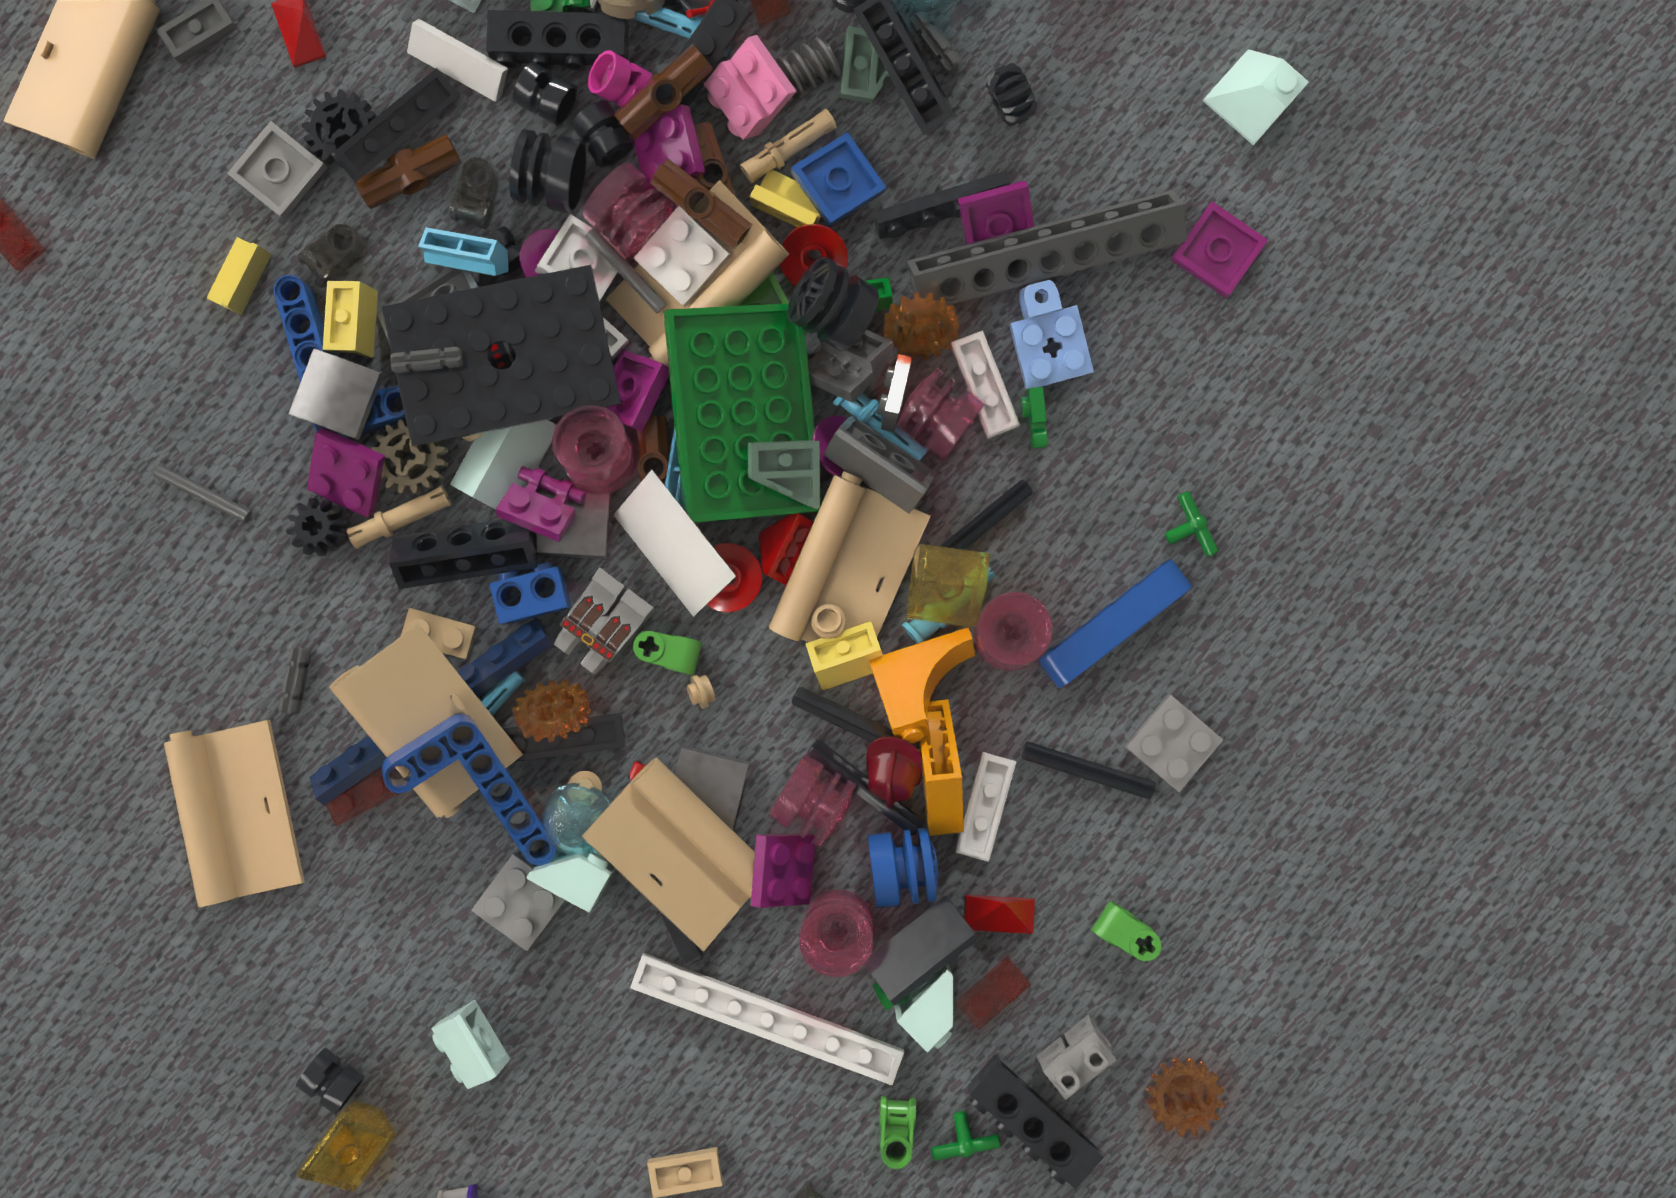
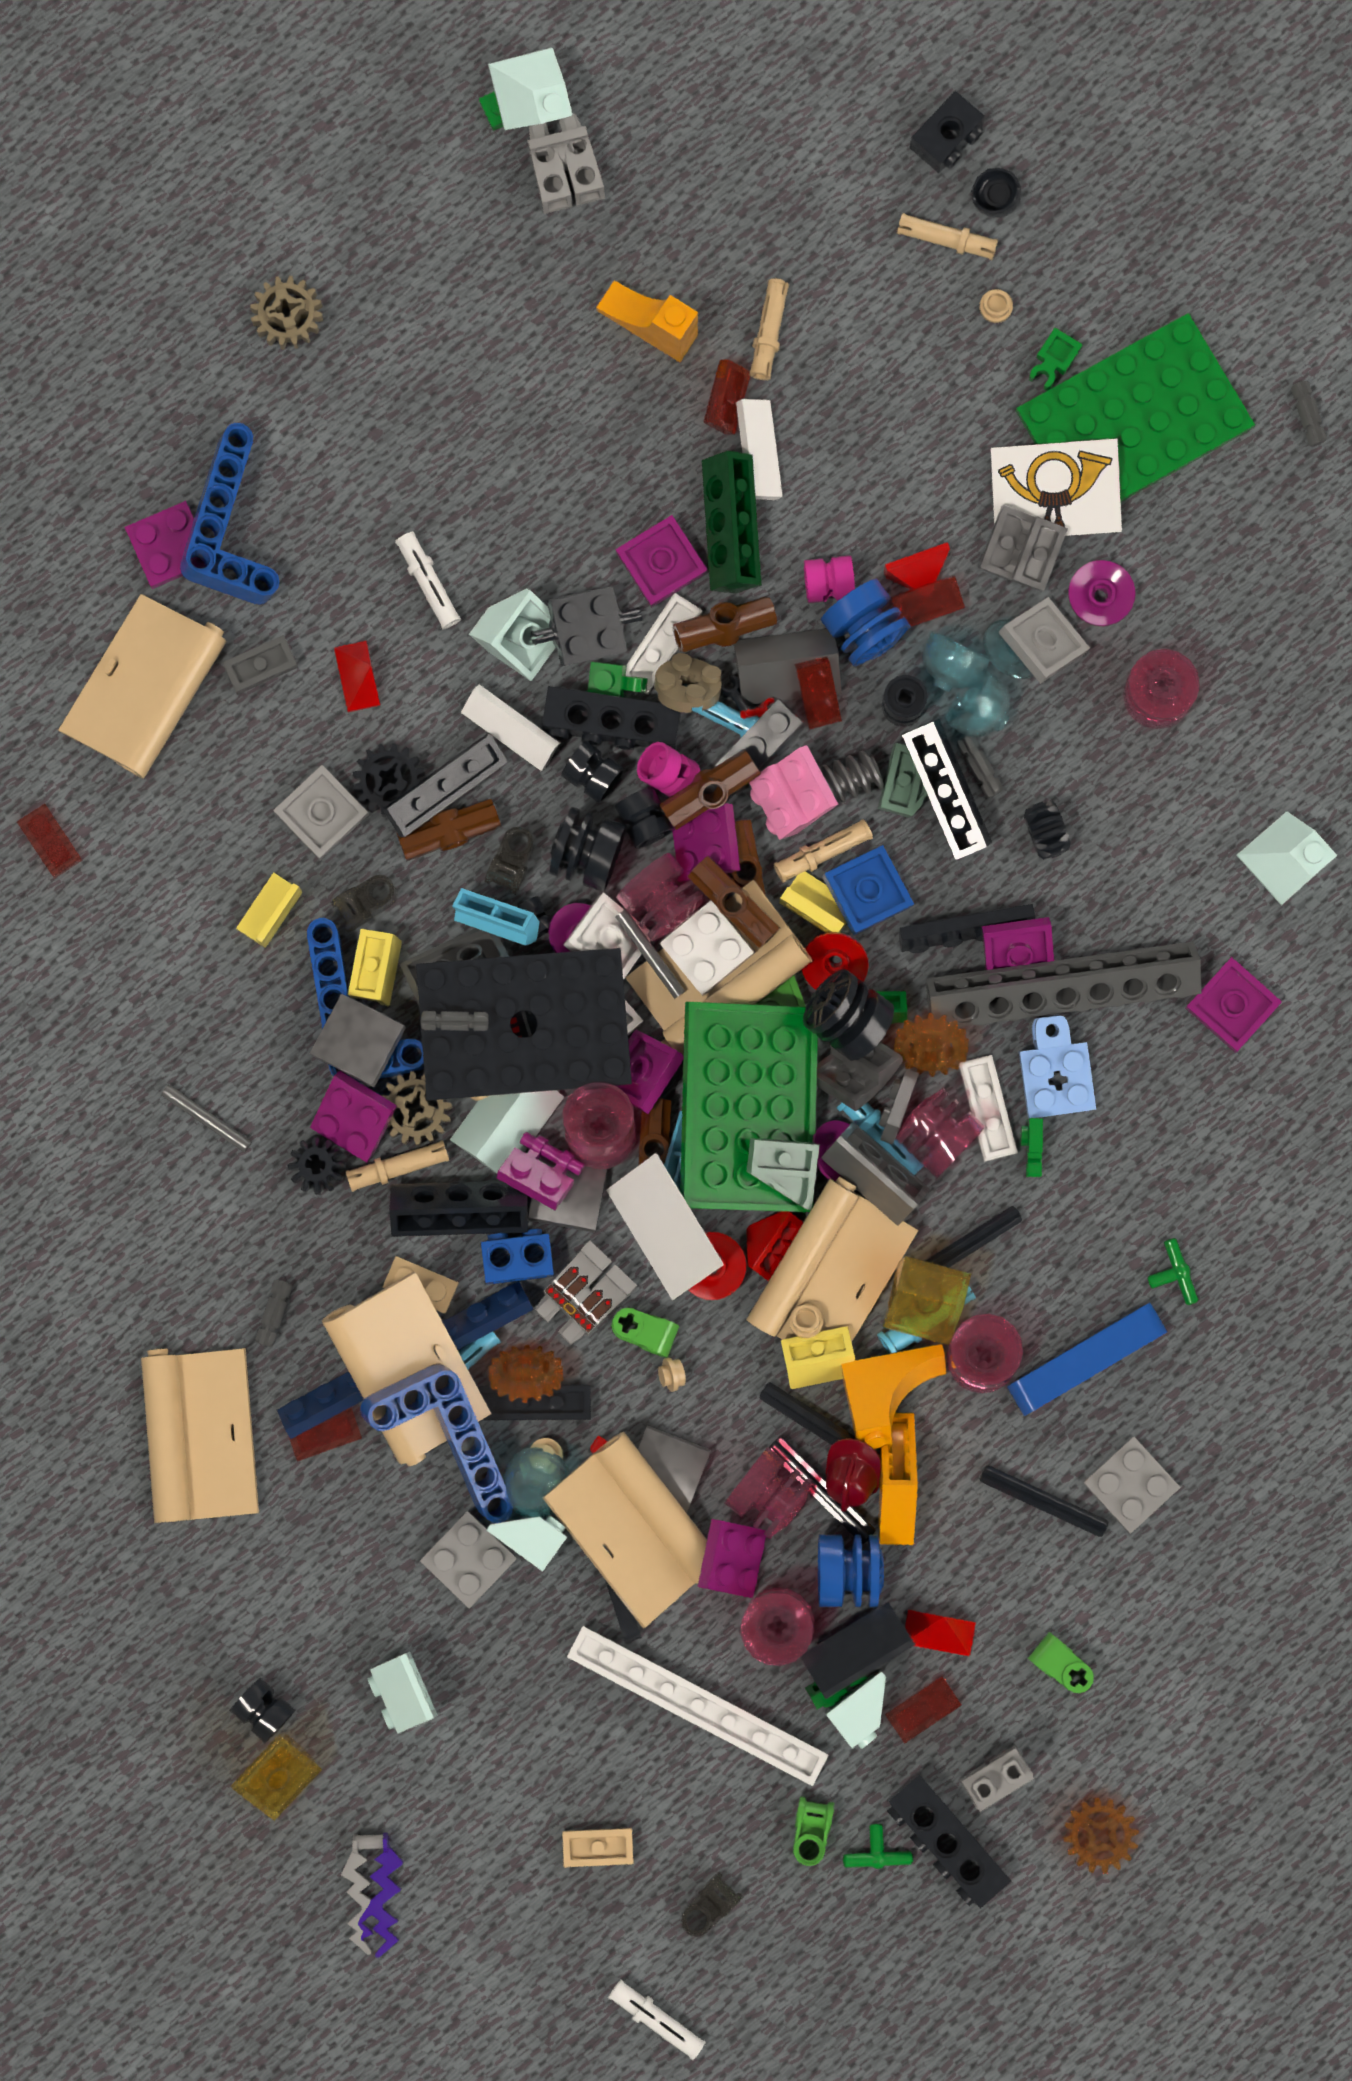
camera: 10 degrees right, 5 degrees down
(985, 806) = (938, 1524): white tile -> none

